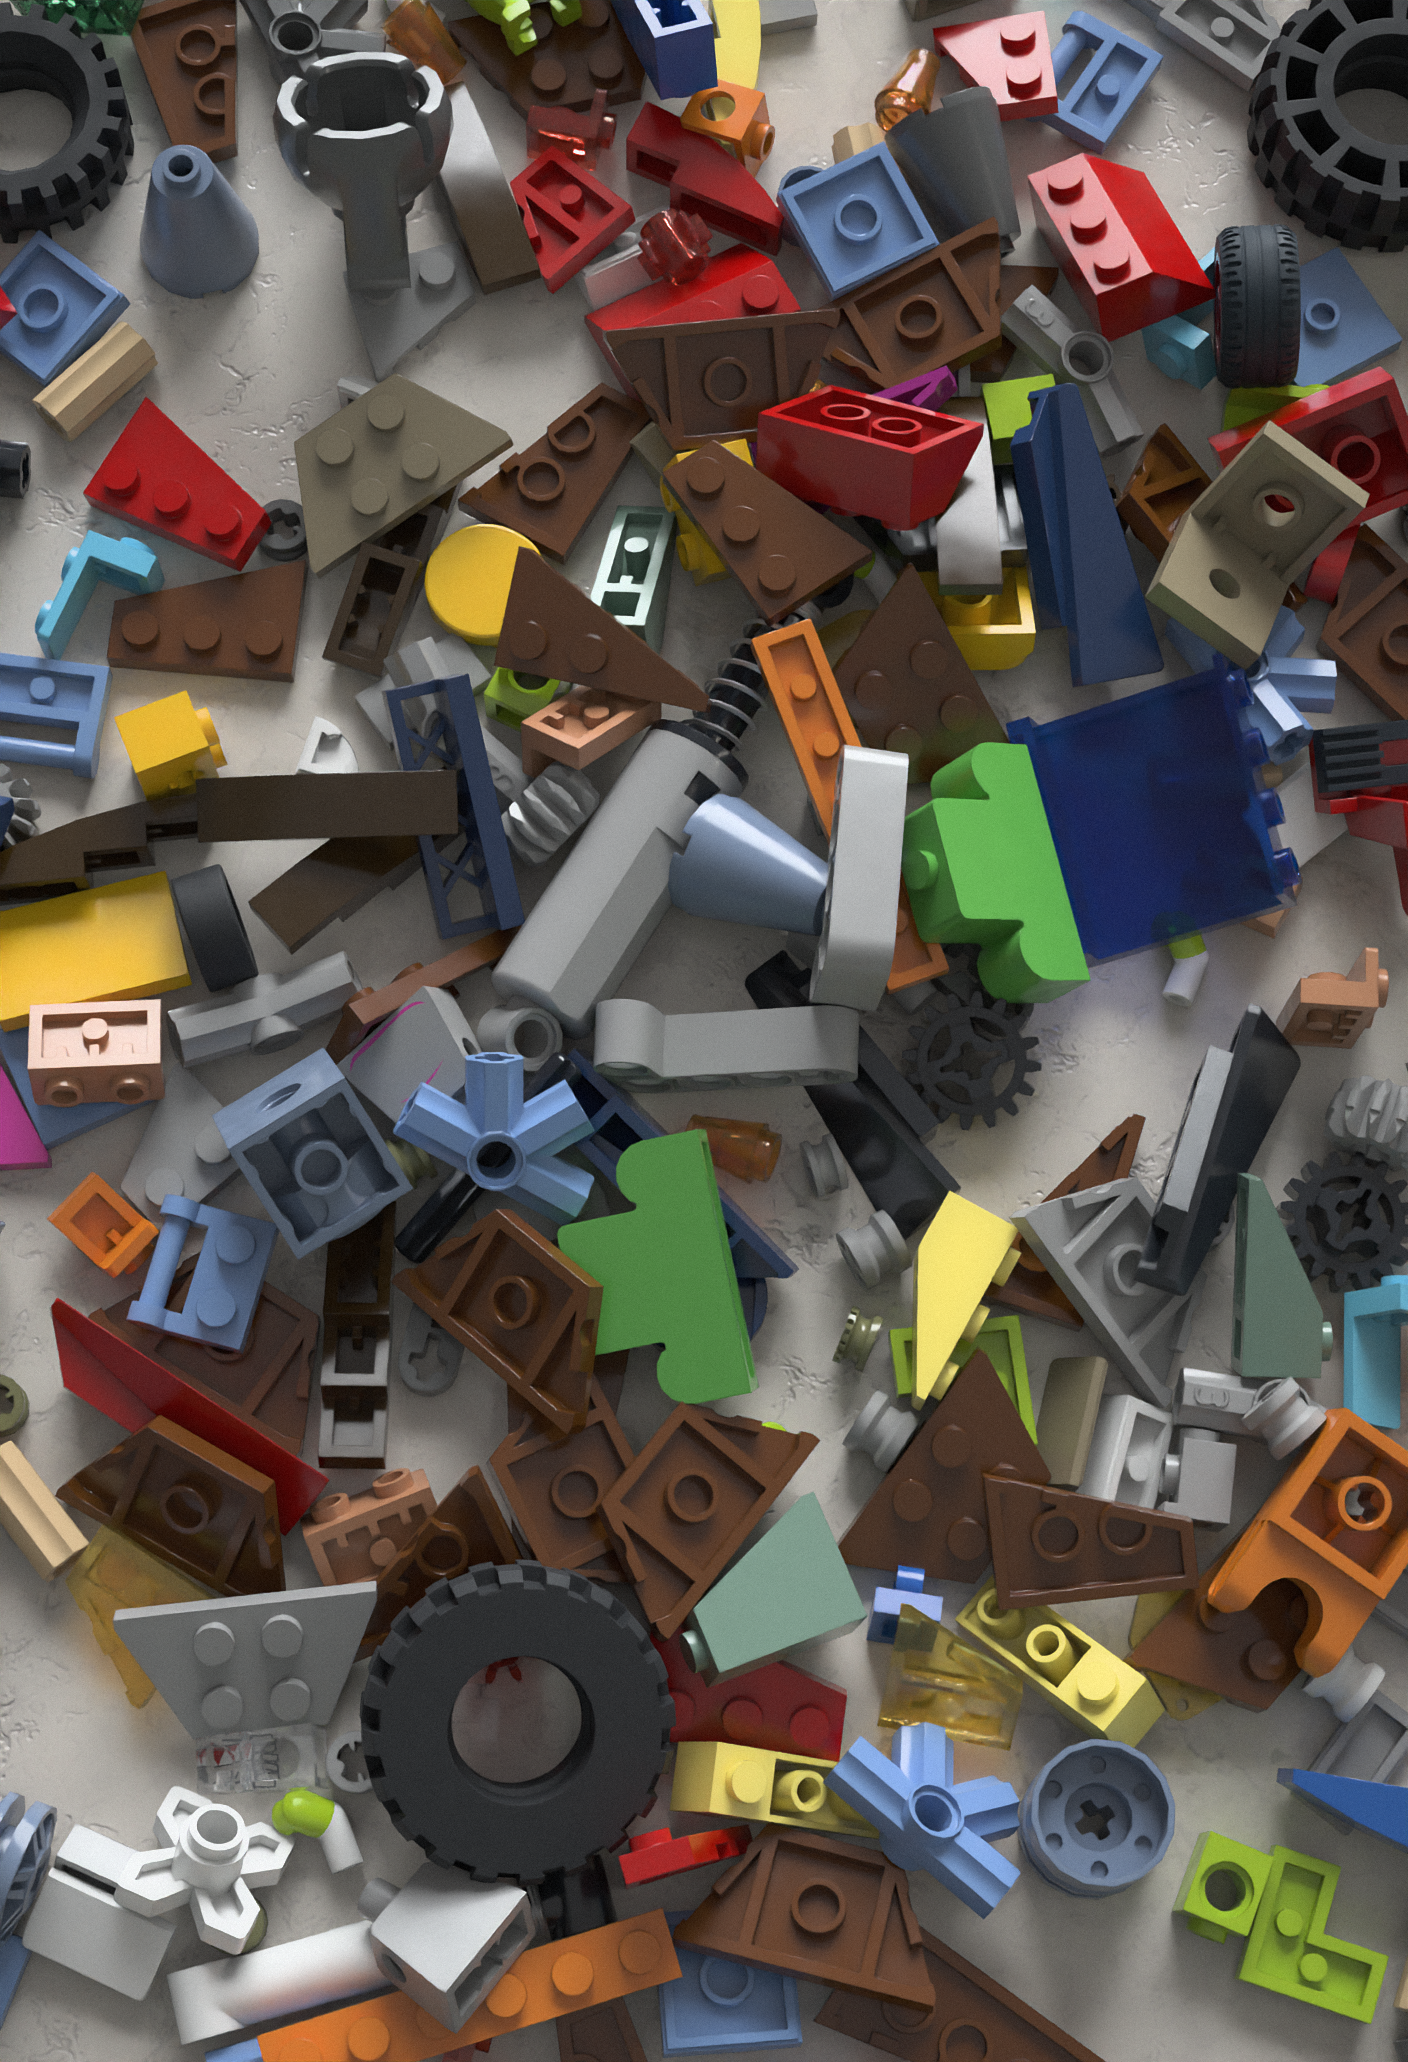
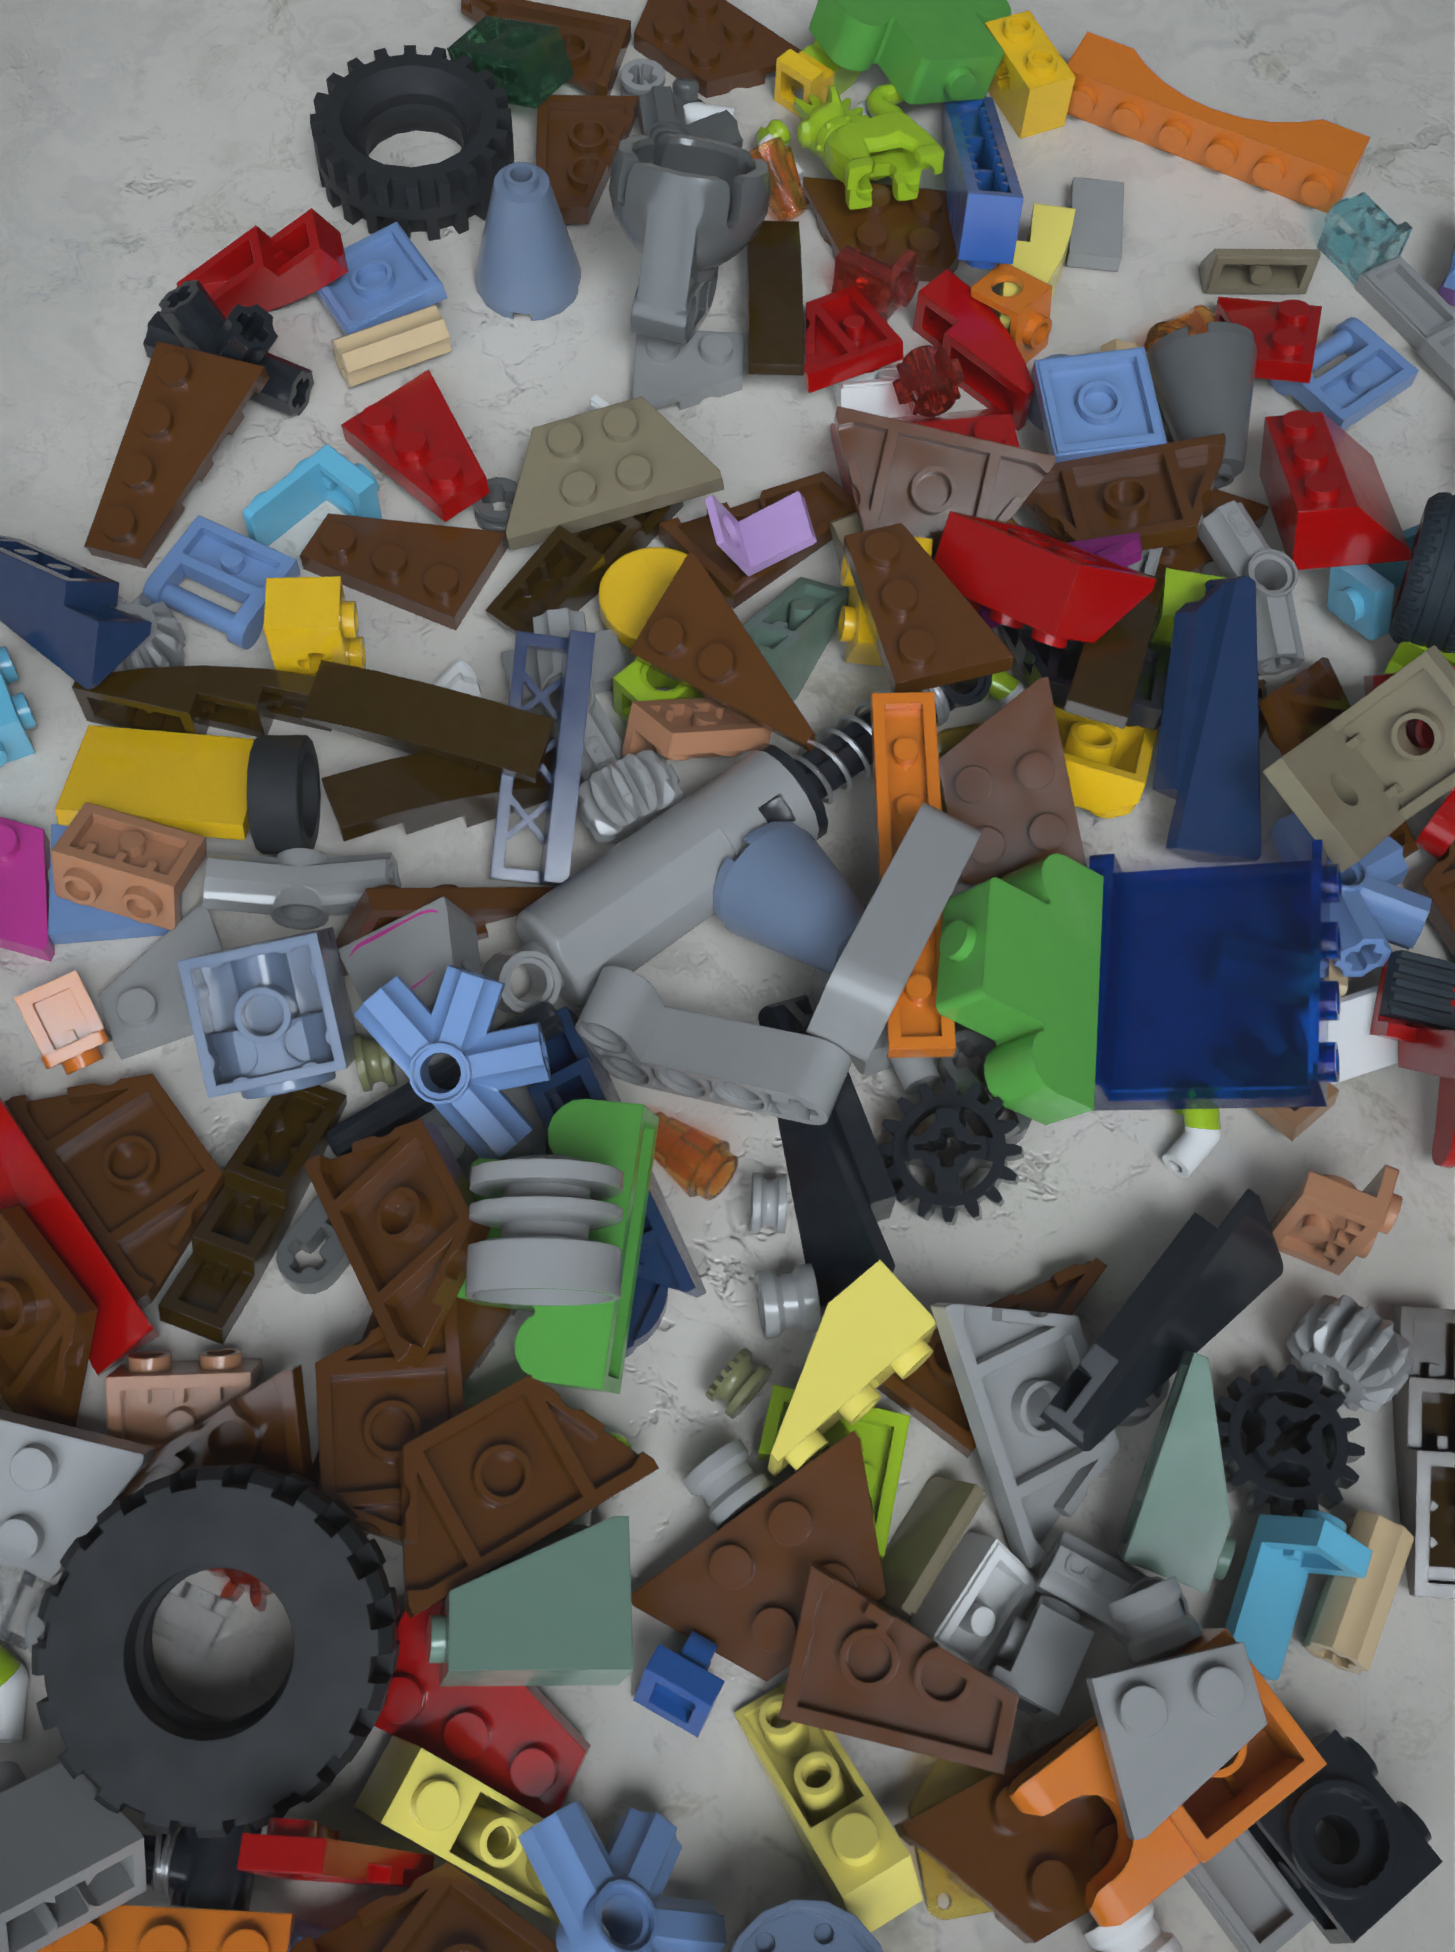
camera: 20 degrees right, 10 degrees down
(224, 1281) = (144, 1111): medium blue plate -> none
(572, 483) = (765, 535): none -> lavender bracket
(660, 1279) = (545, 1224): none -> light grey wheel
(947, 1684) = (697, 1780): clear yellow wing -> none
(1327, 1502) = (1173, 1727): none -> light grey wing

